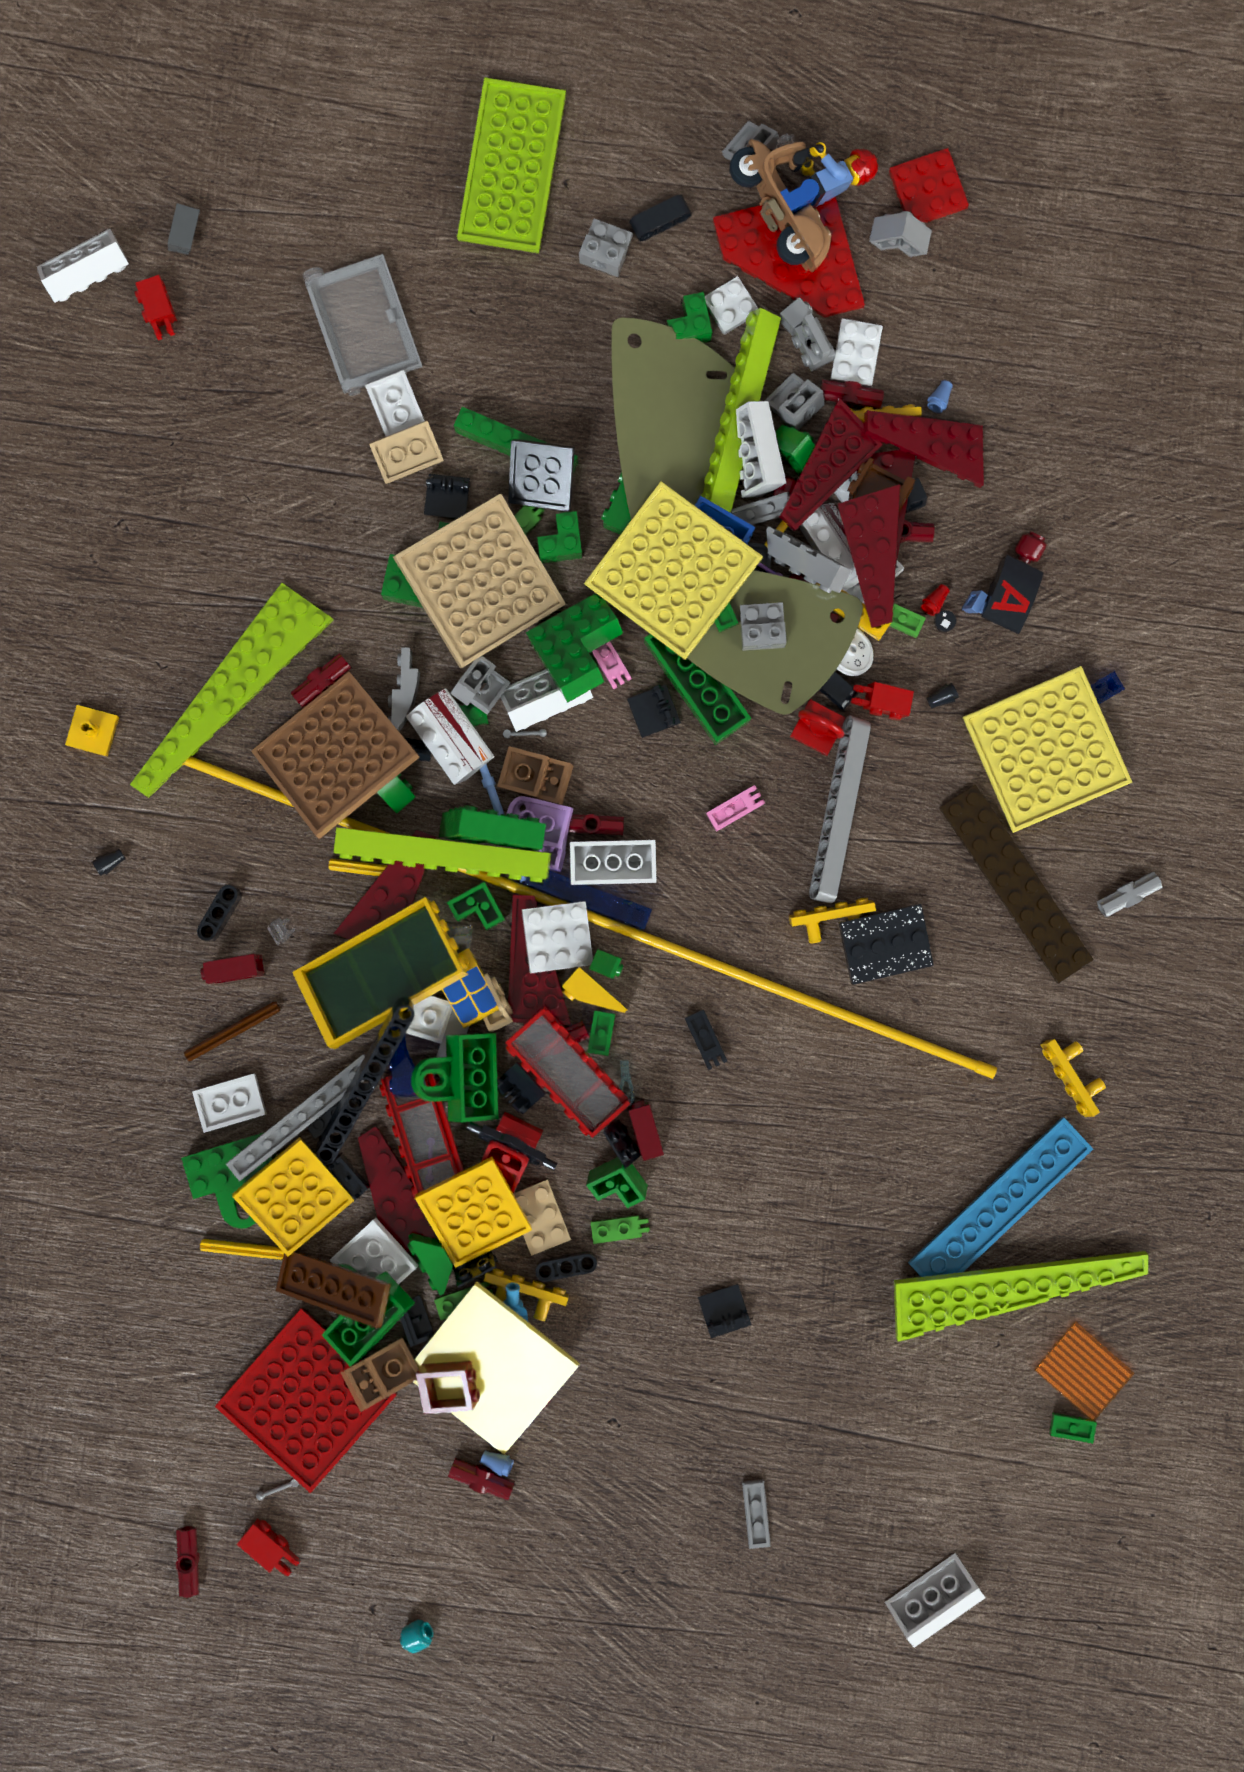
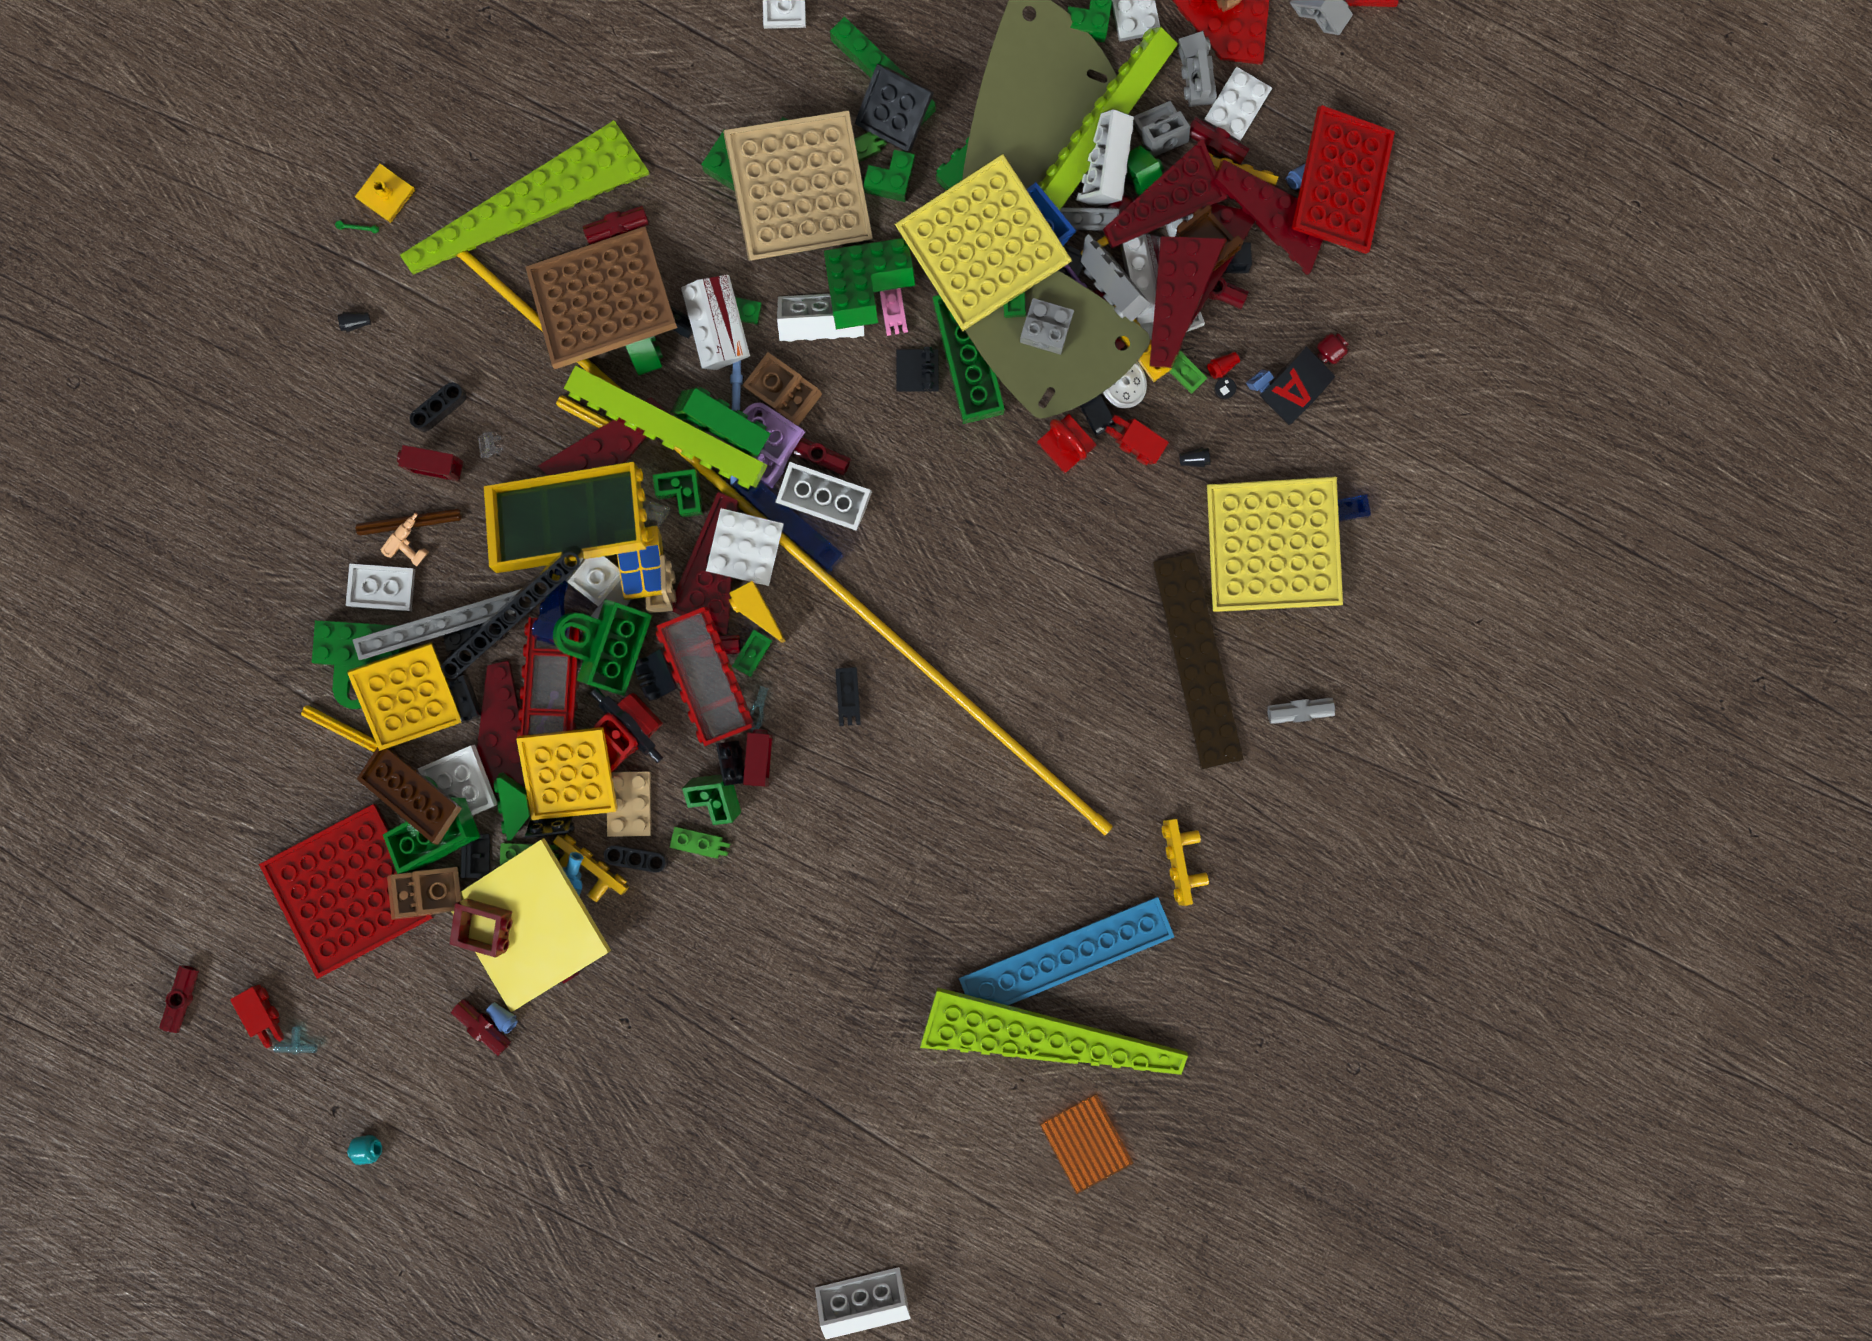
camera: 25 degrees right, 0 degrees up
(61, 776) = (340, 225): none -> green hinge
(231, 1052) = (398, 541): none -> light nougat piece
(260, 1495) = (270, 964): light grey hinge -> none
(314, 1564) = (295, 1046): none -> clear light blue piece
(403, 699) = (688, 270): light grey slope -> none
(406, 452) = (776, 40): tan plate -> none
(446, 496) = (799, 95): black hinge -> none
(468, 687) = (759, 275): light grey brick -> none
(507, 733) = (771, 341): light grey hinge -> none
(606, 964) = (780, 589): green slope -> none
(724, 1311) = (768, 957): black hinge -> none
(734, 809) = (958, 490): bright pink hinge -> none
(756, 1514) = (726, 1158): light grey tile -> none
(821, 913) = (1023, 622): yellow plate -> none
(840, 810) = (1056, 528): light grey beam -> none
(886, 944) = (1052, 670): black plate -> none
(981, 387) = (1343, 179): none -> red plate
(1072, 1428) = (1054, 1192): green plate -> none

